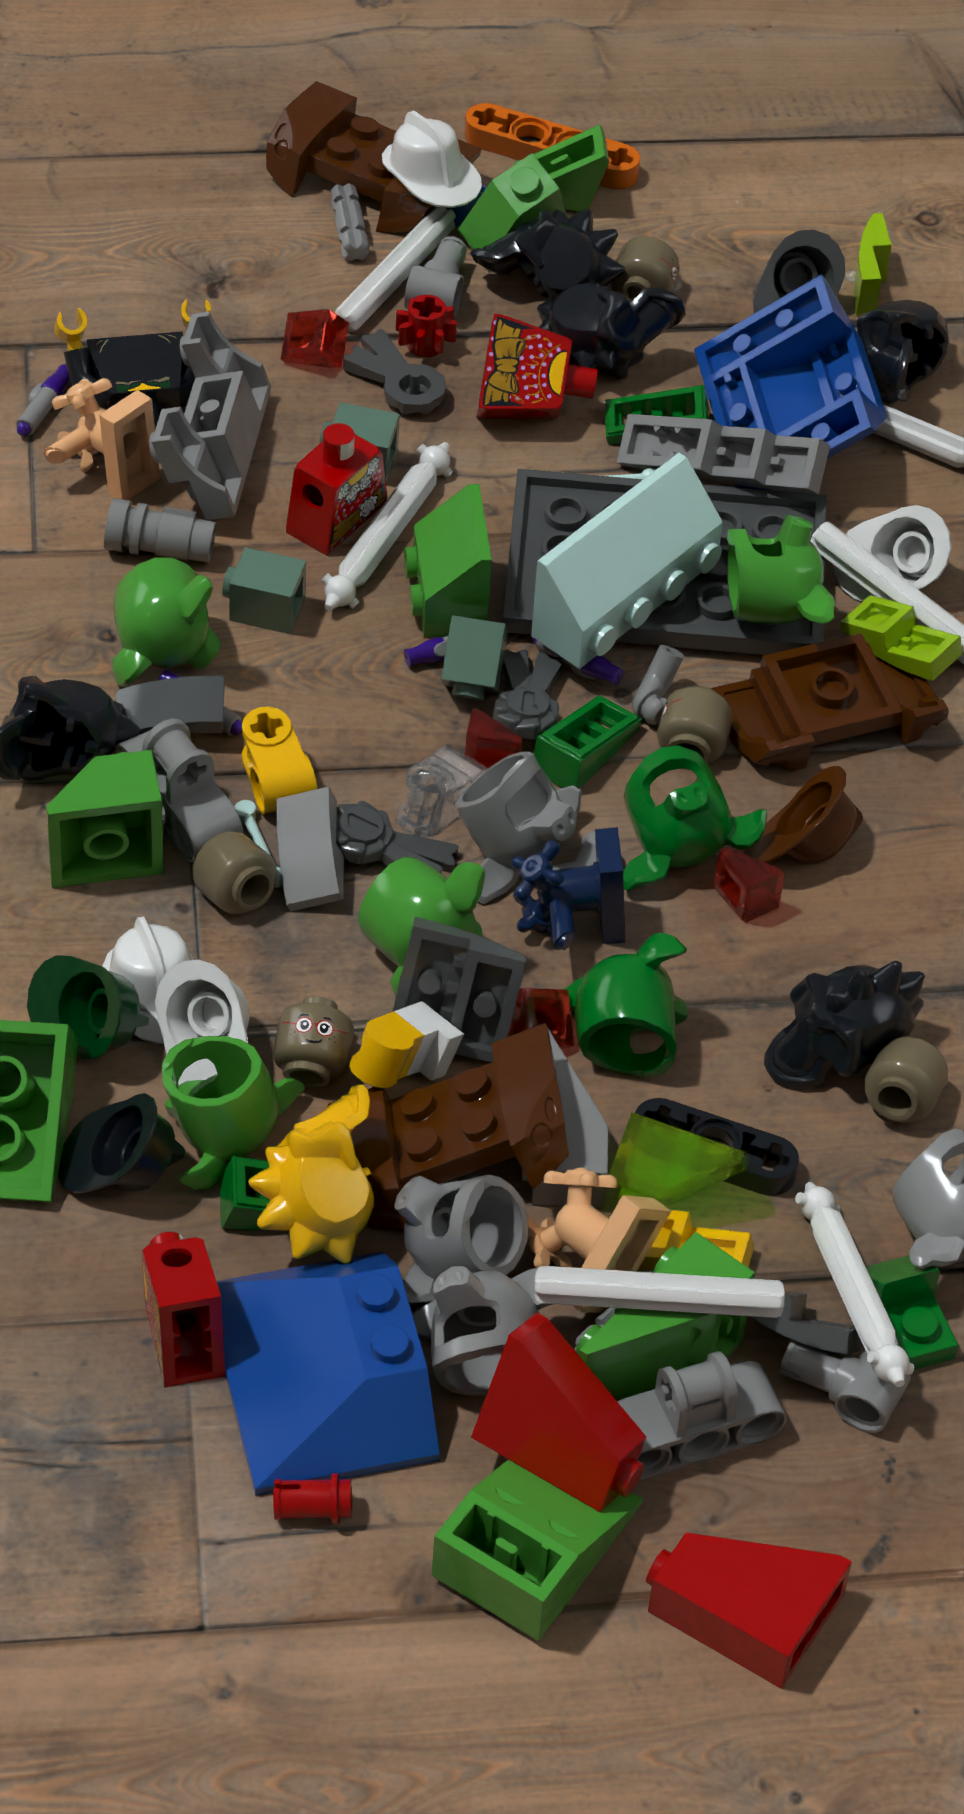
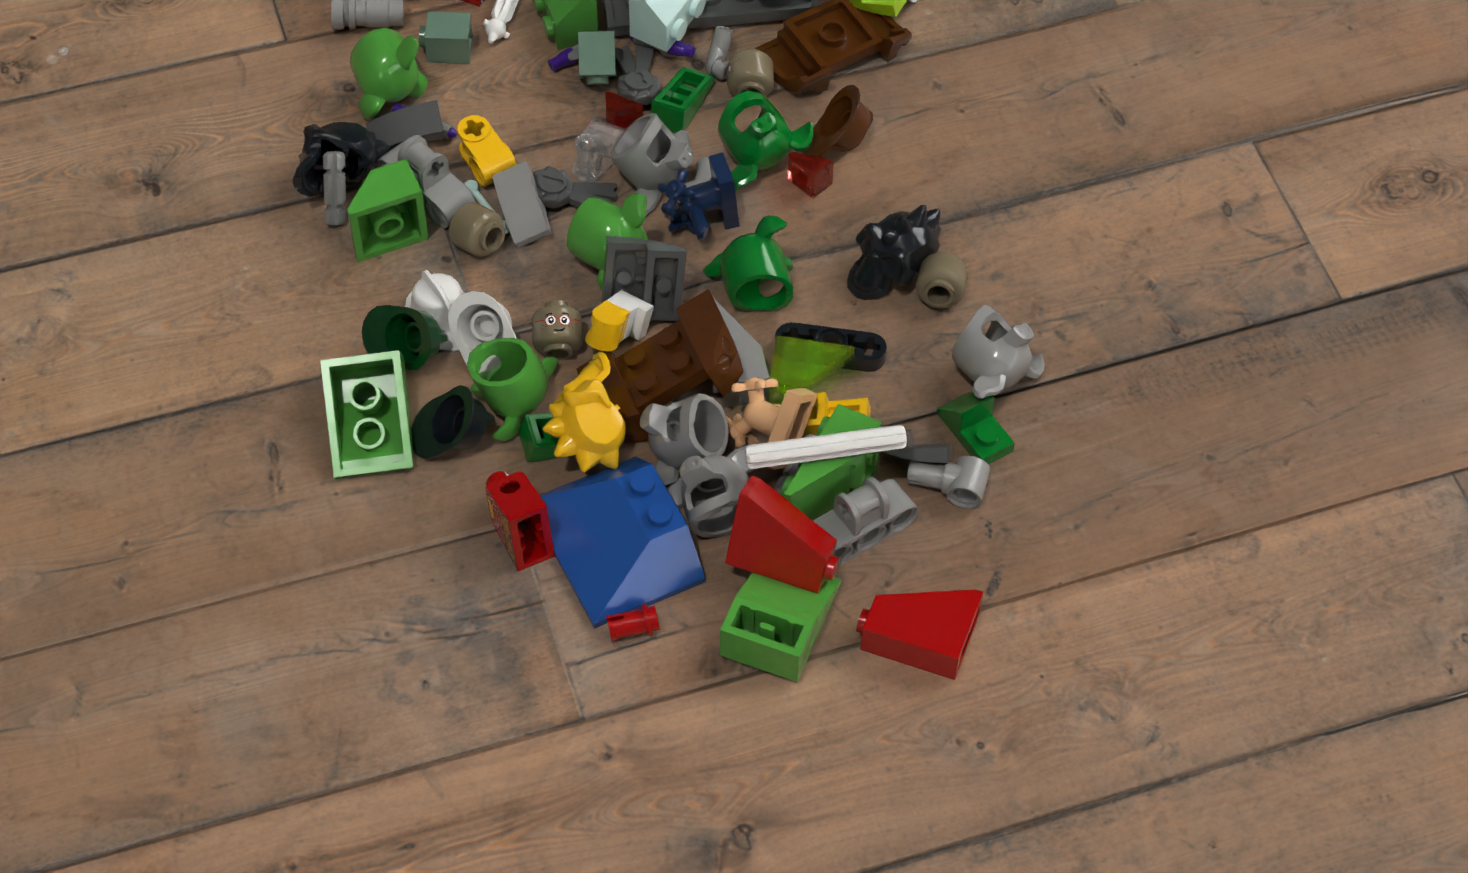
camera: 10 degrees left, 5 degrees up
(42, 772) = (334, 188): none -> light grey axle
(543, 1006) = (699, 280): clear red slope -> none
(854, 1285) = (941, 417): white wheel -> none

